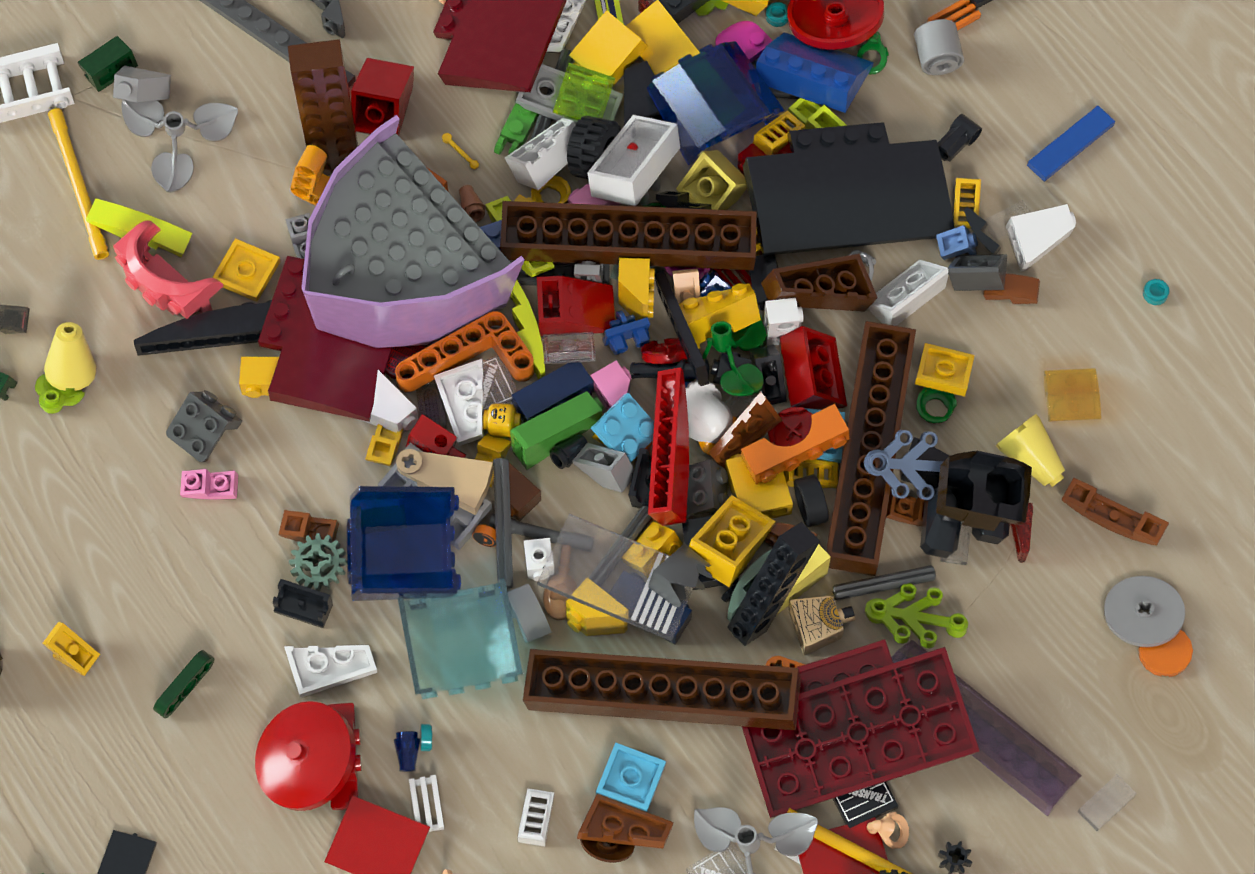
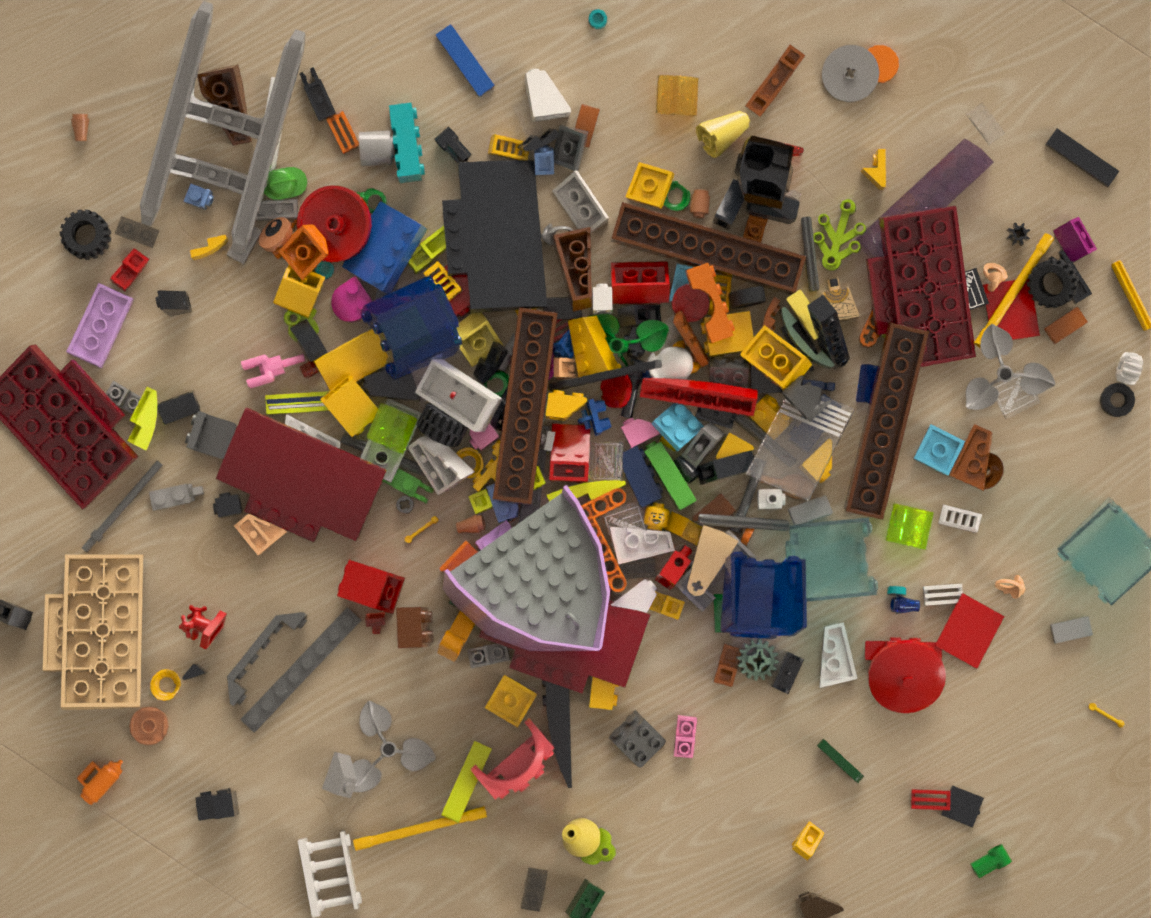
camera: 90 degrees left, 20 degrees up
(106, 62) = (315, 802): dark green hinge -> none
(134, 791) = (930, 807): none -> red tile
(490, 121) = (404, 498): none -> dark grey bush
(518, 747) = (909, 526): none -> clear neon green slope
(576, 494) = (725, 467): none -> black slope
(605, 503) = (733, 445): none -> yellow slope
(700, 599) = (826, 386): none -> dark blue plate
(906, 464) = (735, 222): sand blue plant -> none
(942, 432) = (700, 203): none -> nougat brick
(950, 82) = (405, 142): none -> teal wedge
(1011, 660) = (878, 174): none -> yellow slope

